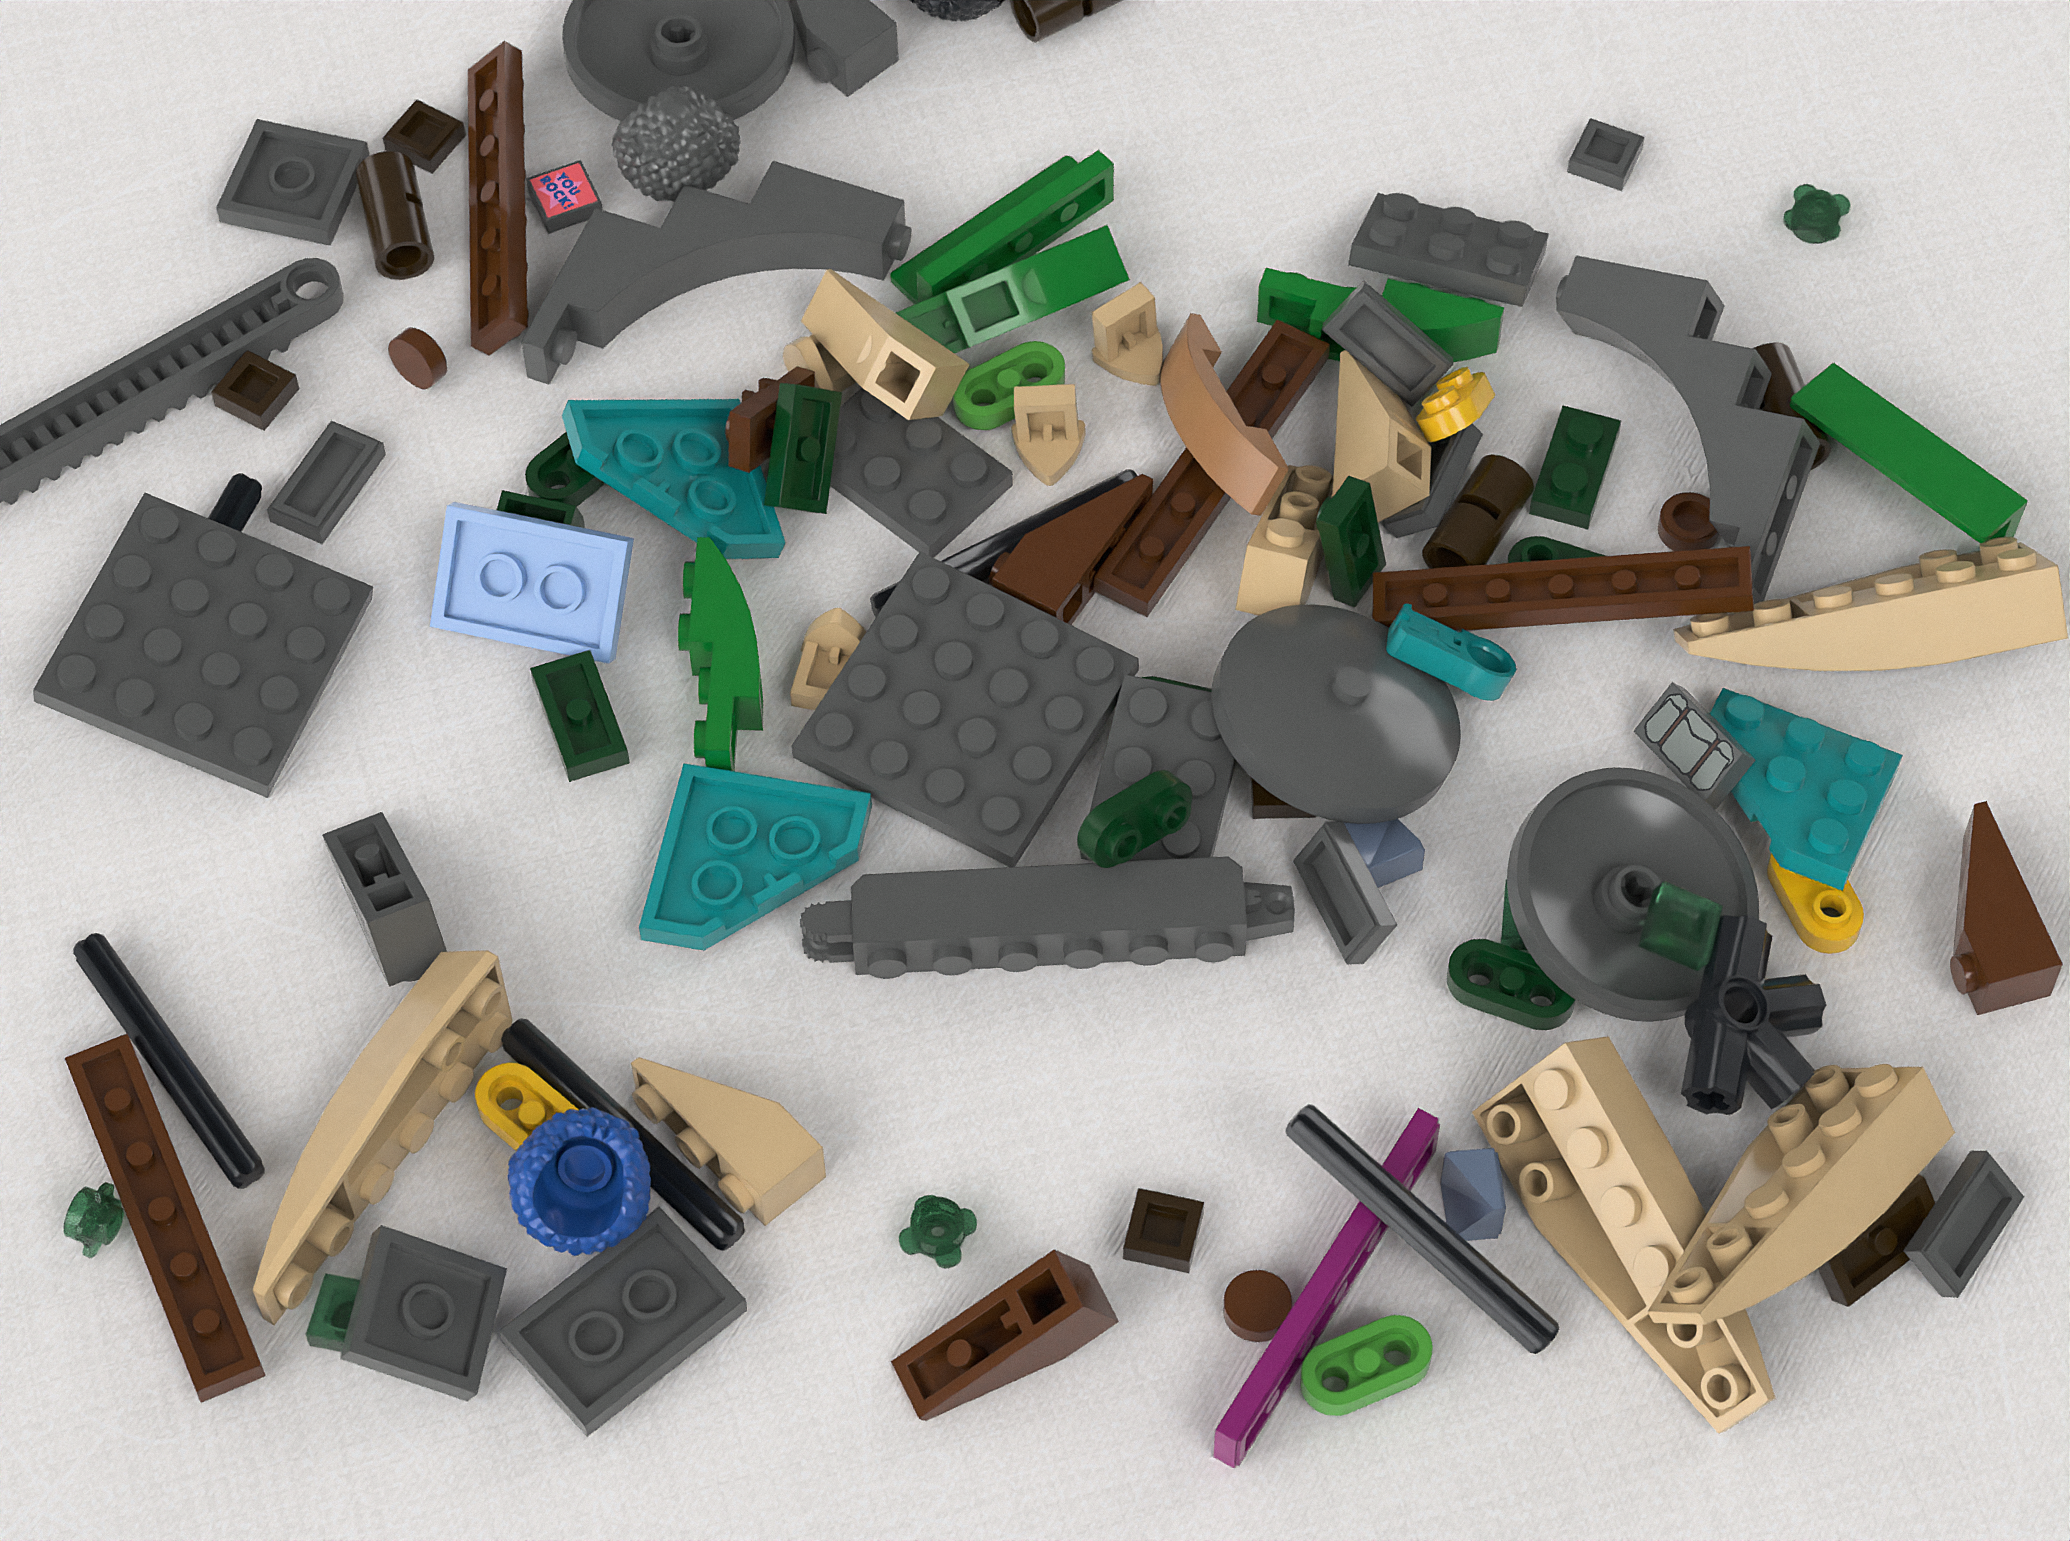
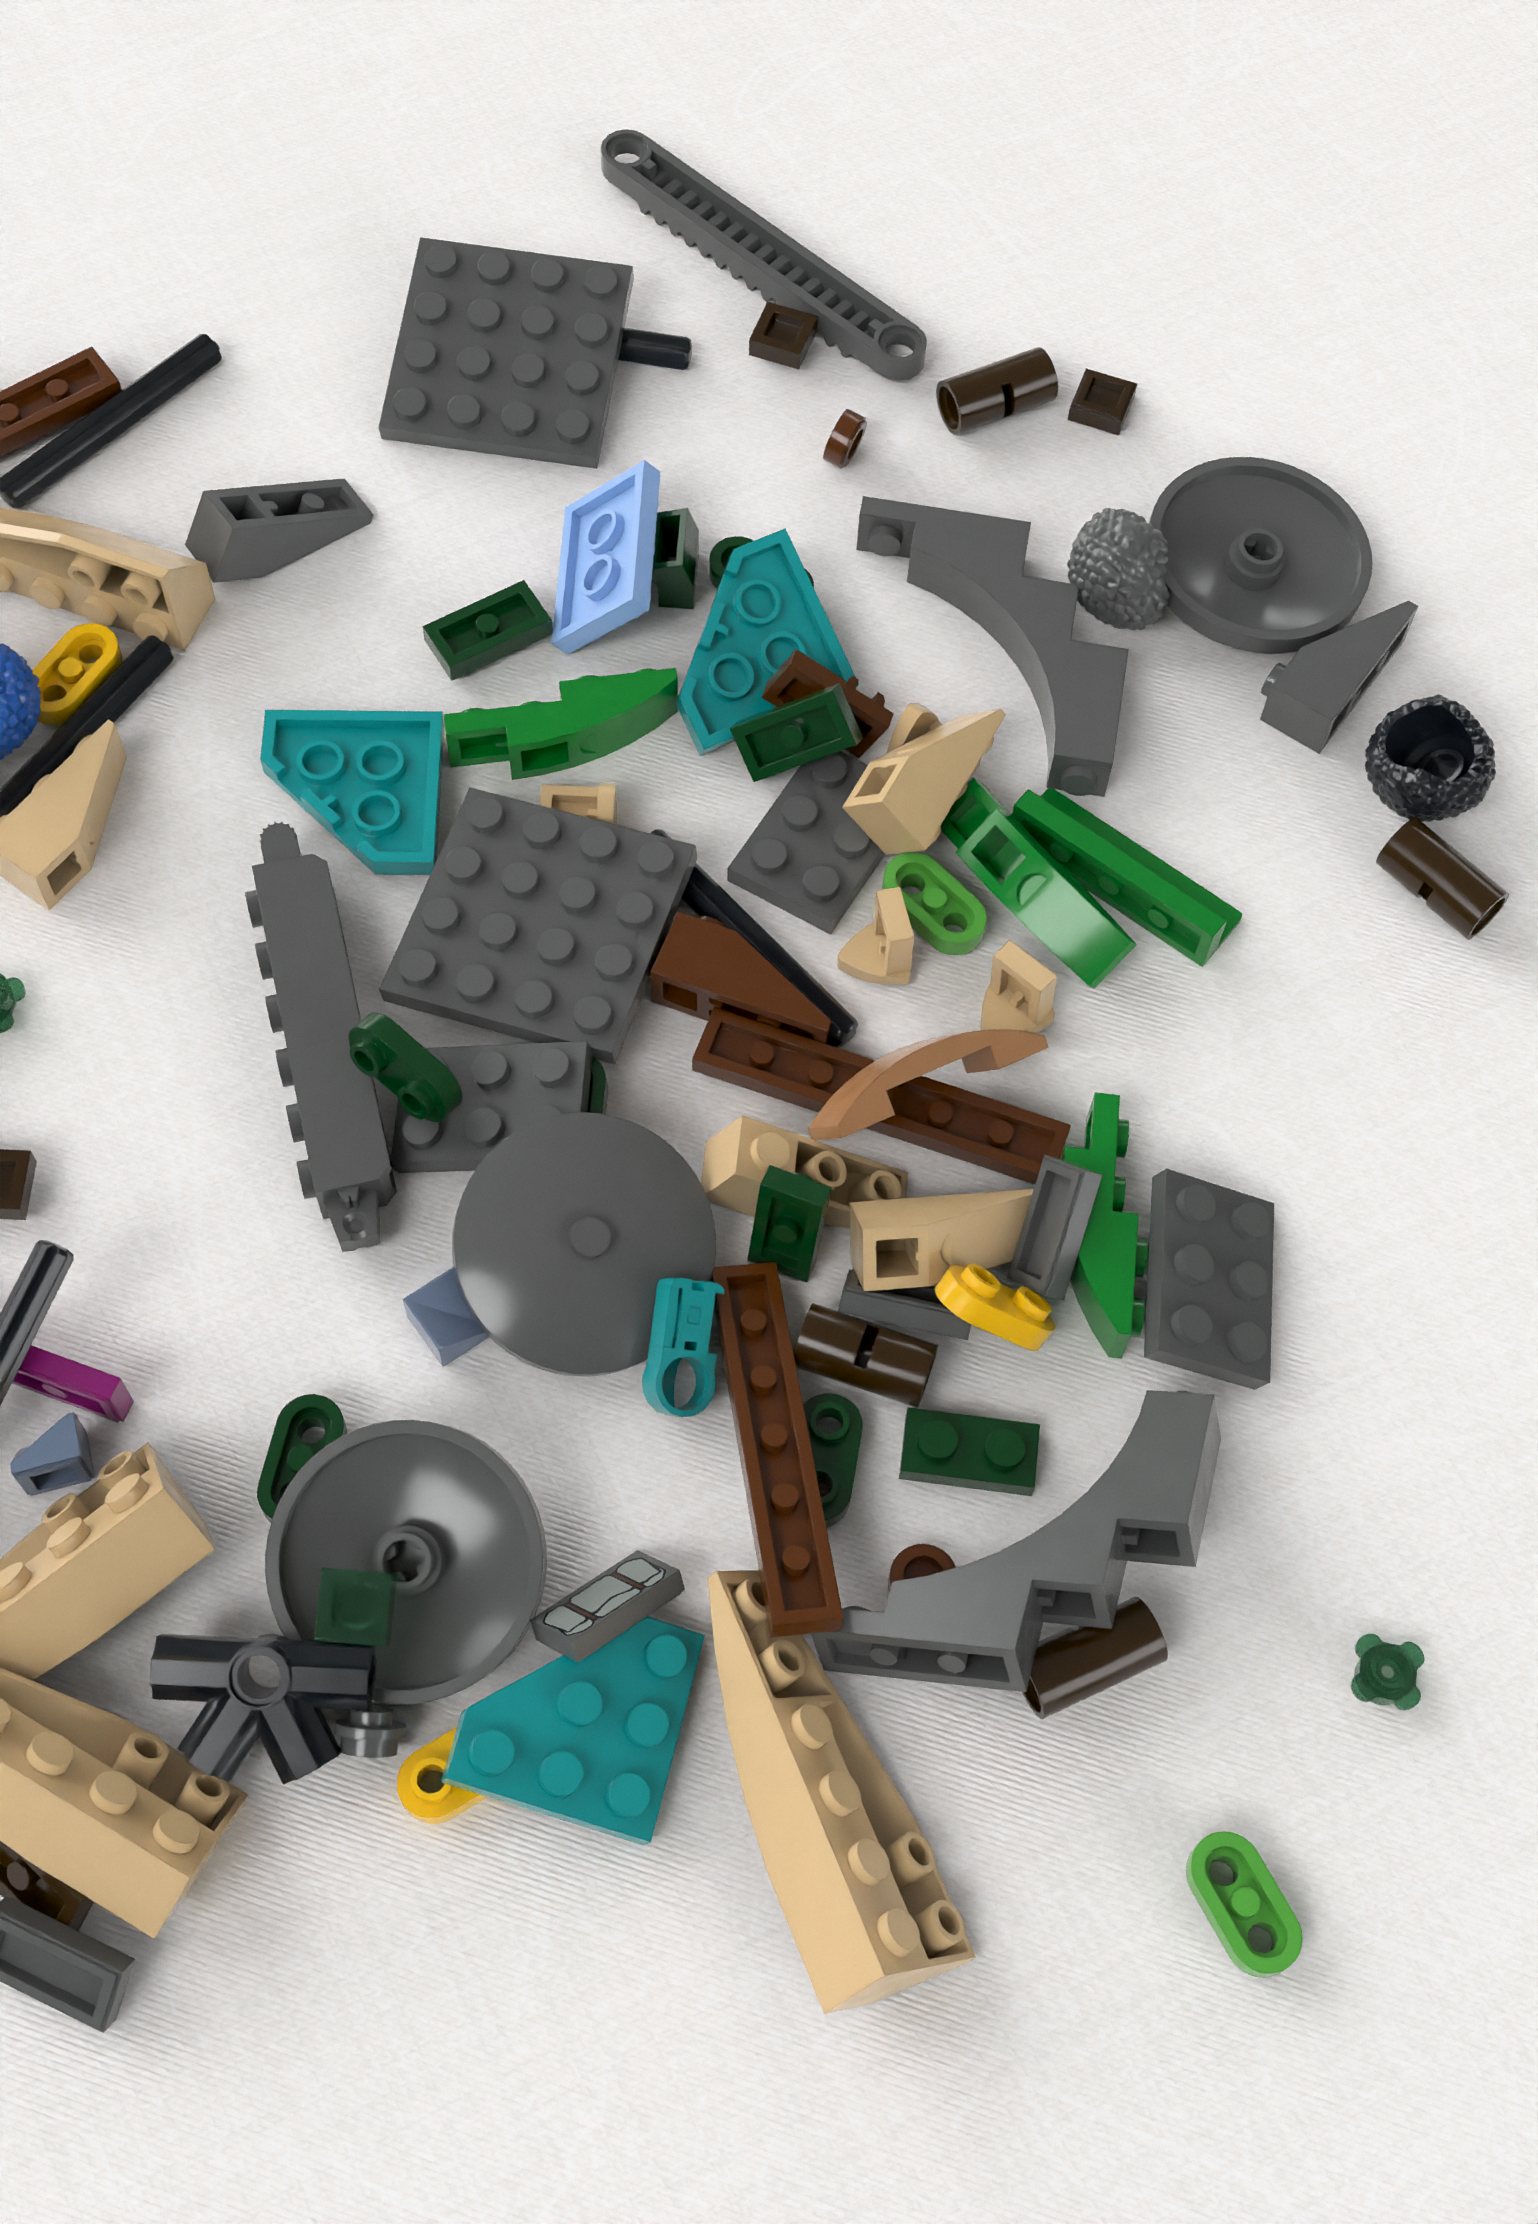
camera: 75 degrees right, 5 degrees up
(292, 182) = (1015, 312): dark grey plate -> none
(326, 482) = (706, 408): dark grey tile -> none
(497, 199) = (1063, 458): reddish brown plate -> none
(563, 196) = (1060, 514): tile -> none
(1345, 892) = (383, 1286): dark grey tile -> none
(1605, 154) = (1406, 1433): dark grey tile -> none
(1788, 951) = (370, 1733): none -> dark grey plate
(1910, 455) = (1038, 1801): green panel -> none
(1994, 352) = (1245, 1904): none -> bright green plate
(1999, 937) = (429, 1966): reddish brown slope -> none

